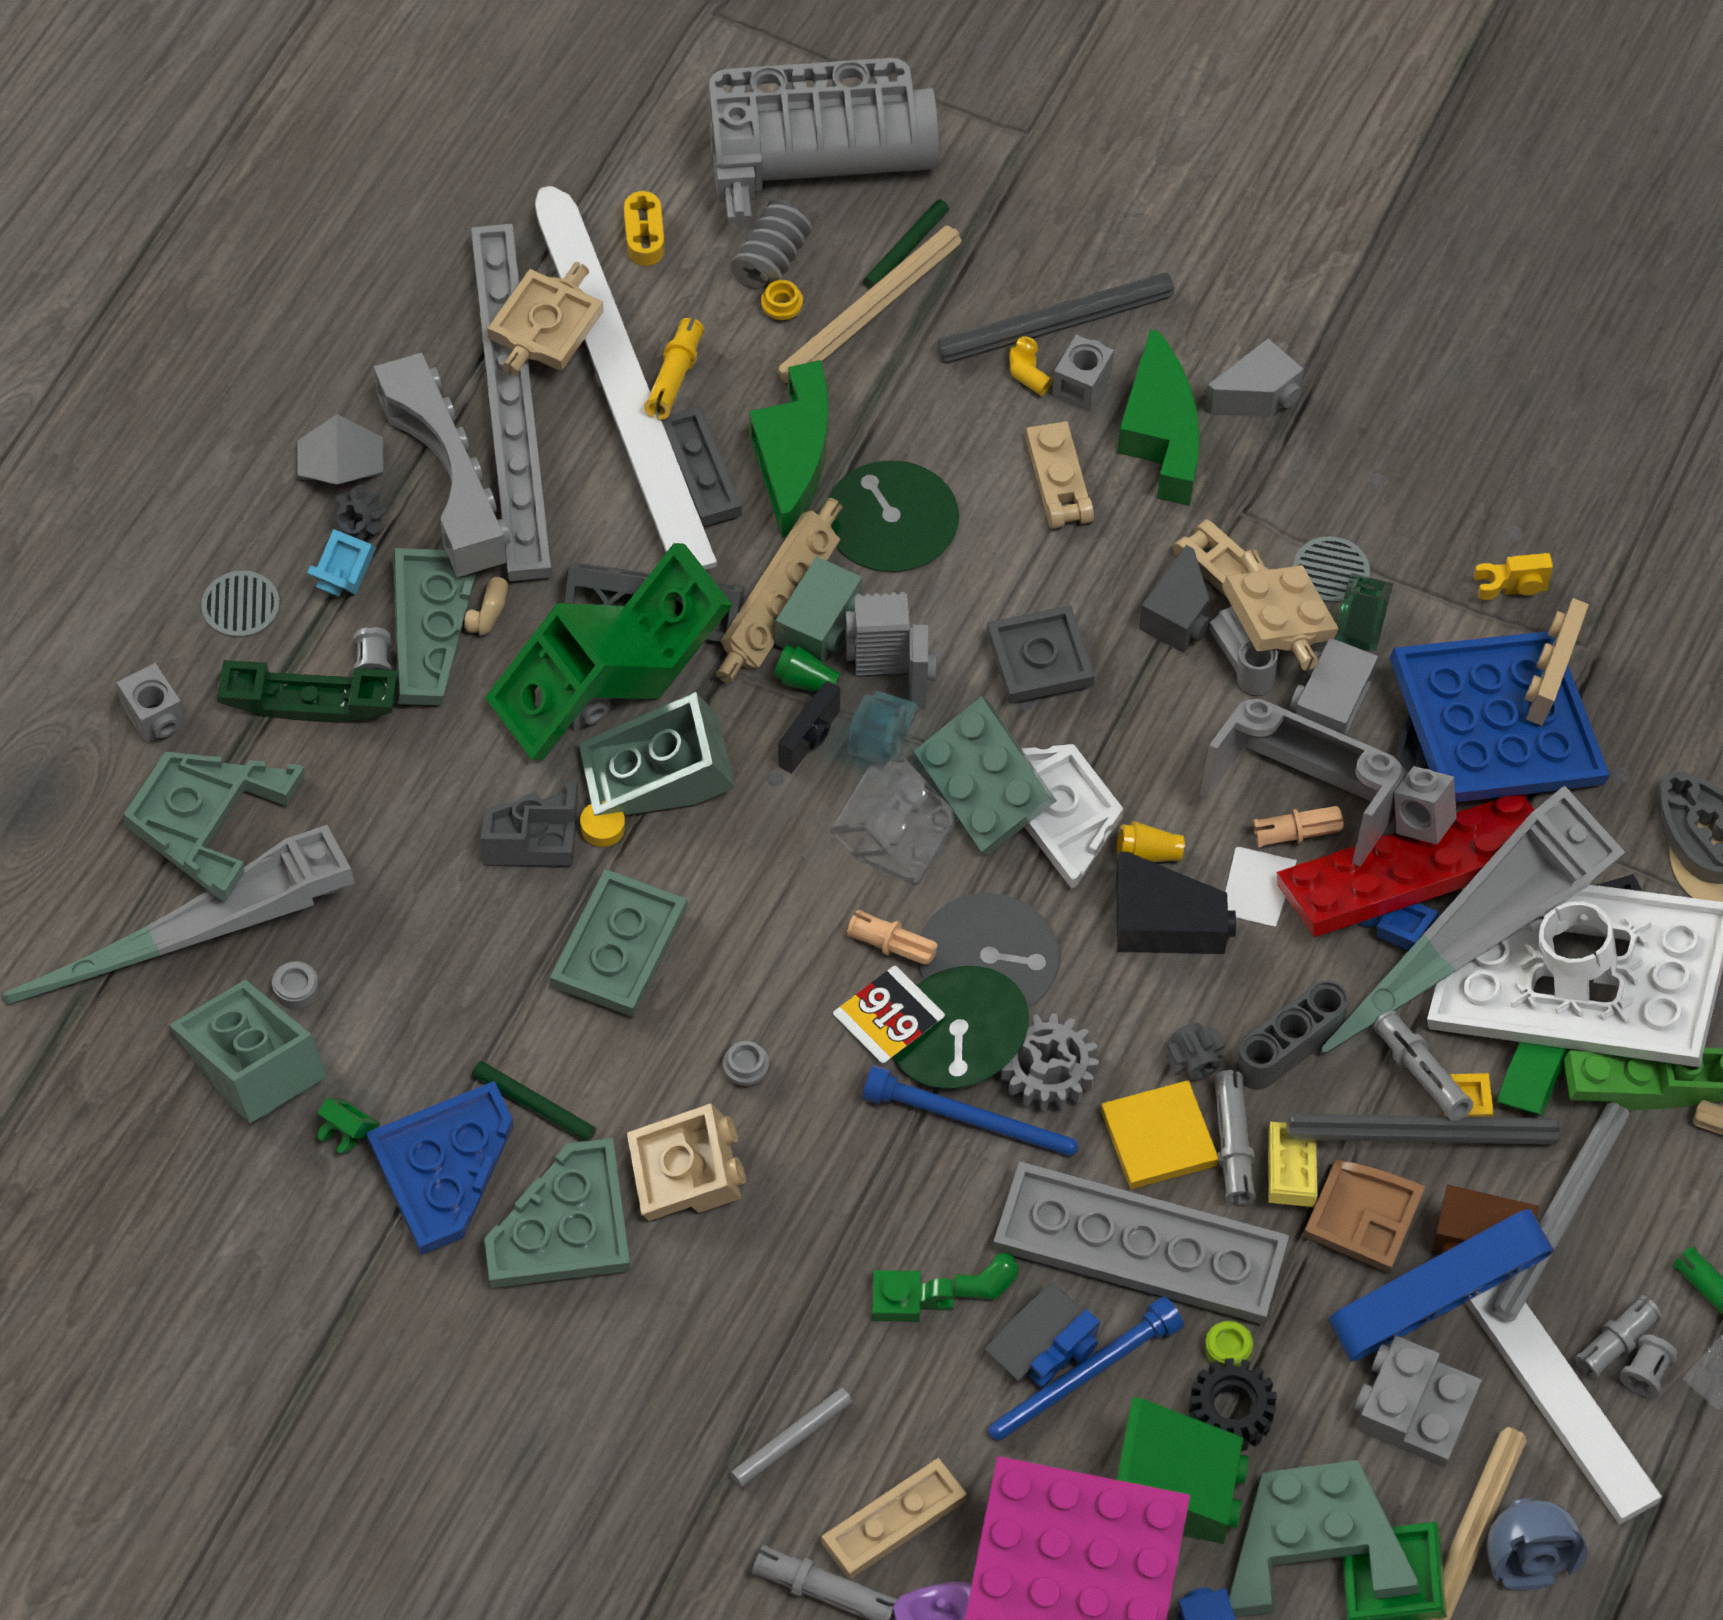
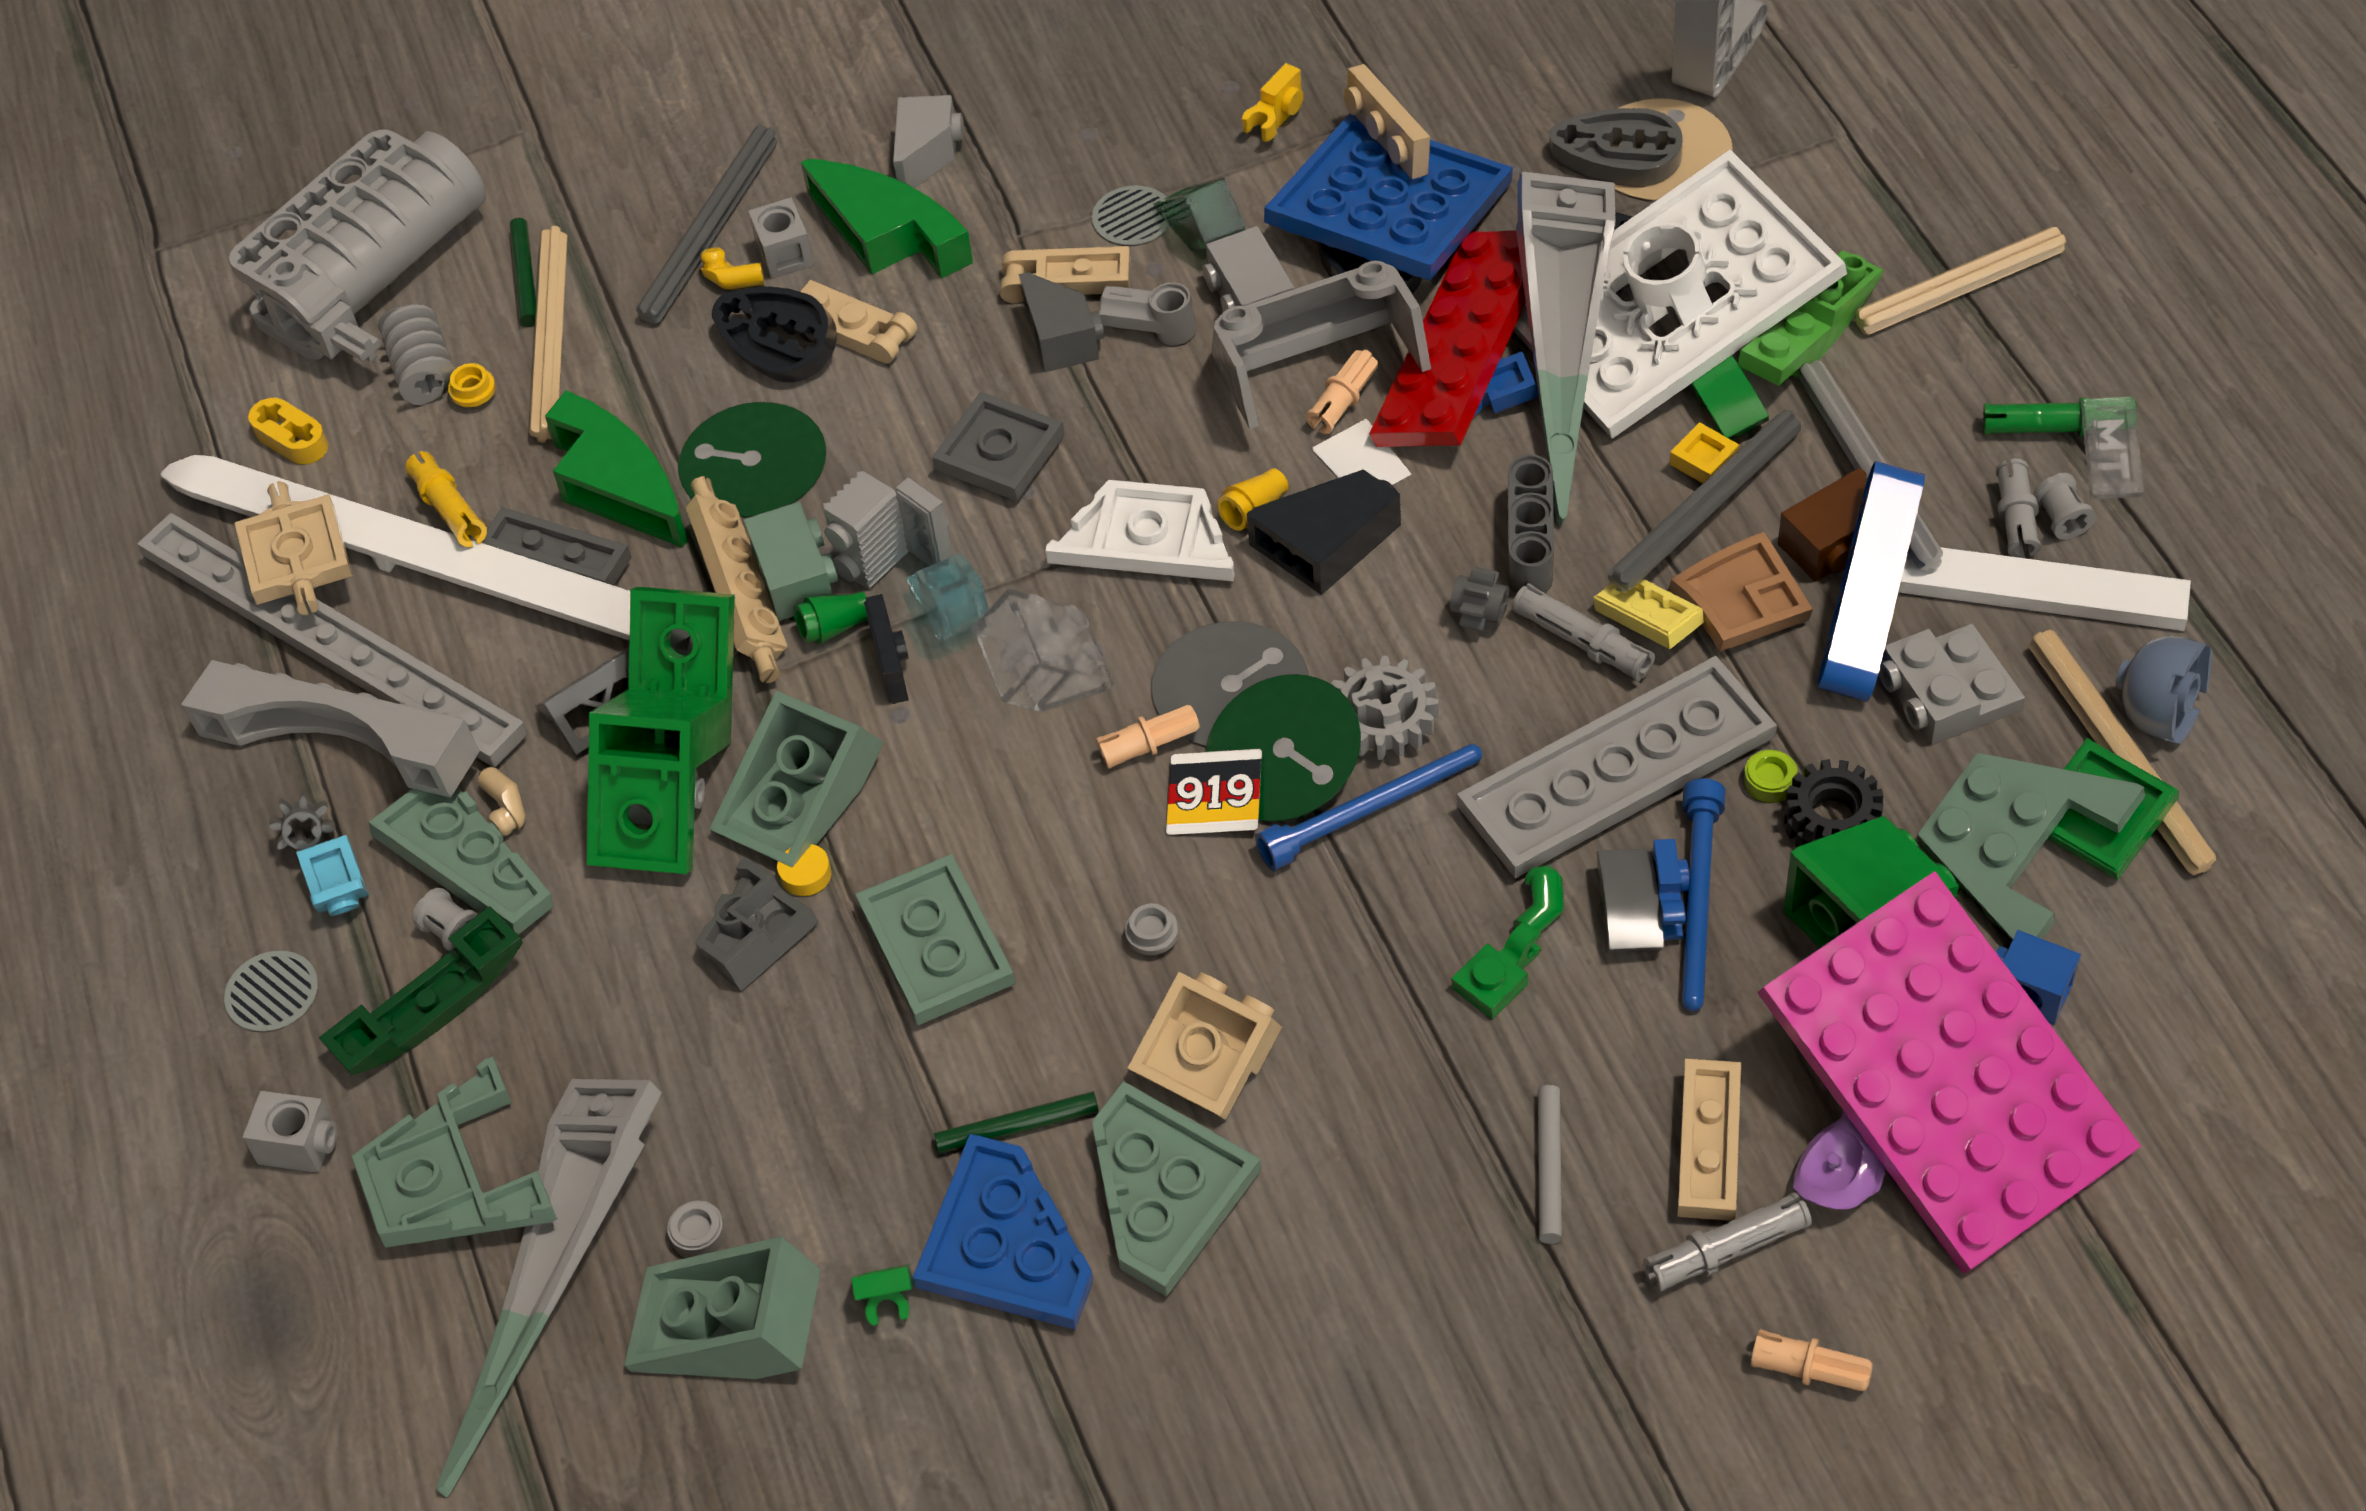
camera: 40 degrees left, 5 degrees down
(340, 452) = (221, 800): light grey slope -> none
(985, 776) = (1073, 556): sand green plate -> none
(1020, 433) = (769, 352): none -> black piece
(1159, 1134) = (1525, 683): yellow tile -> none
(1280, 608) = (1146, 255): tan plate -> none
(1395, 1033) = (1634, 458): light grey pin -> none
(1425, 805) = (1438, 294): light grey brick -> none

